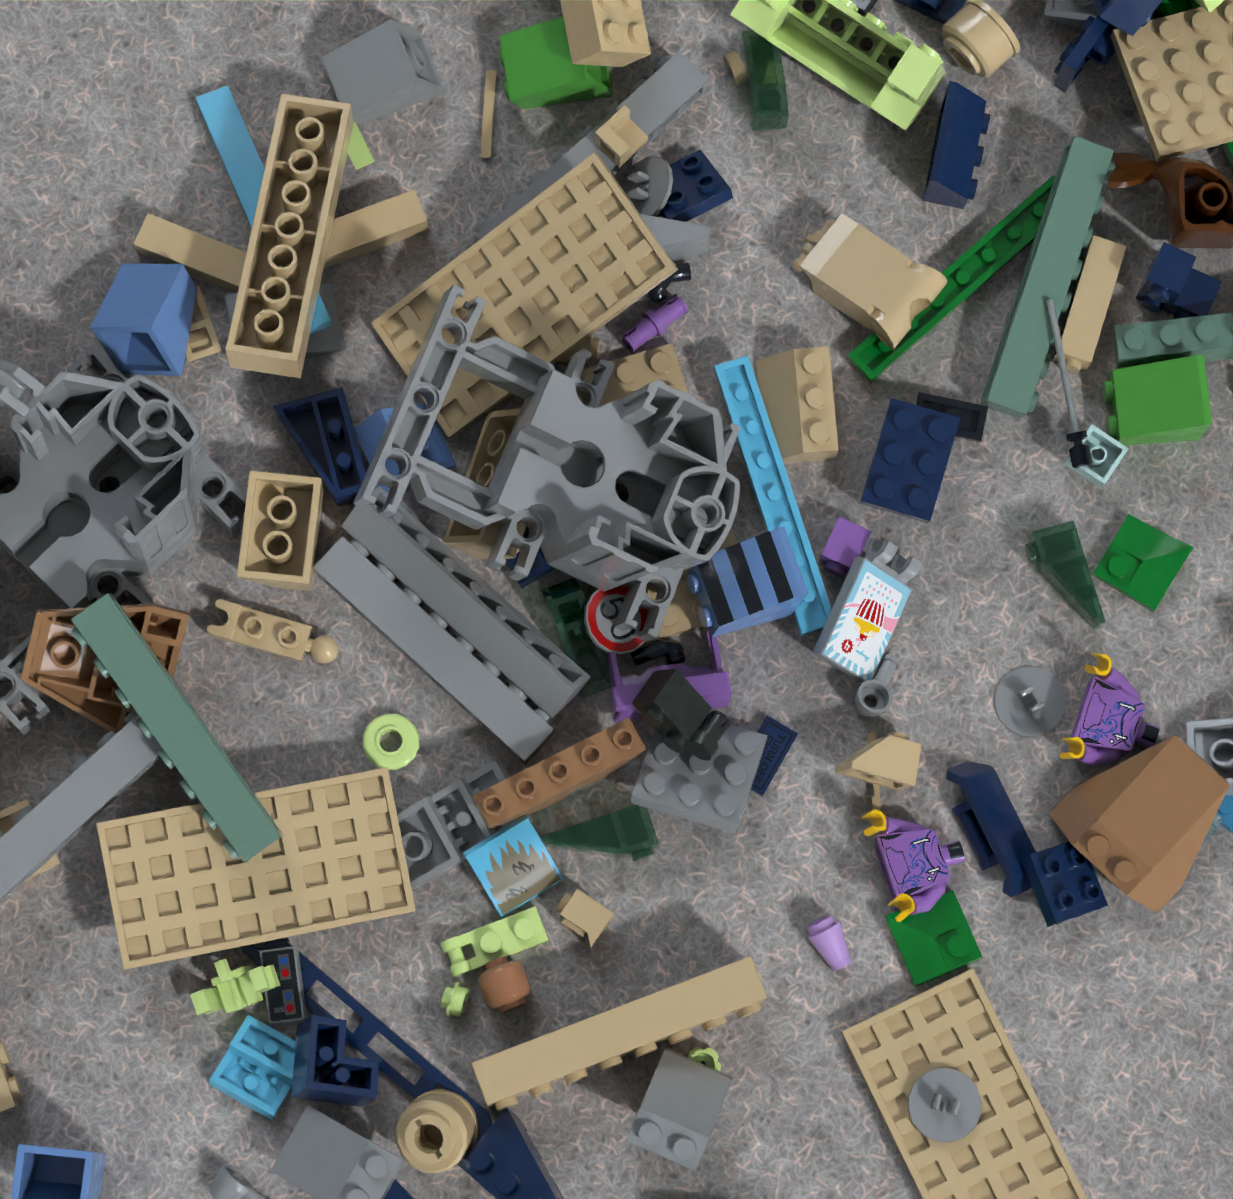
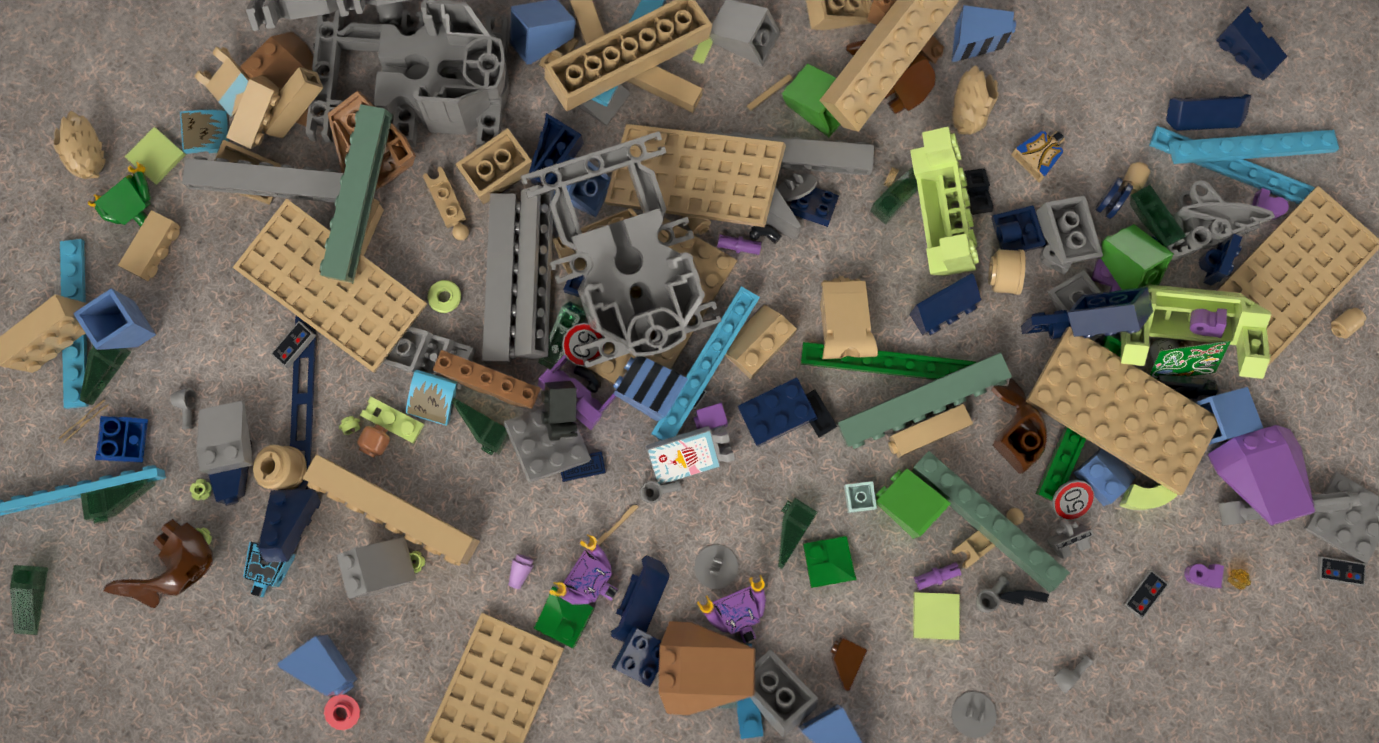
camera: 55 degrees right, 0 degrees up
(235, 988) = (272, 324): yellowish green piece -> none
(257, 1068) = (248, 367): medium azure slope -> none
(323, 1070) = (263, 395): dark blue brick -> none
(583, 916) = (435, 449): tan window -> none
(620, 137) = (808, 153): tan panel -> none
(885, 762) = (625, 523): tan slope -> none
(944, 1105) = (486, 690): light grey piece -> none
(1080, 452) = (852, 487): piece -> none
(1176, 286) = (976, 464): dark blue brick -> none

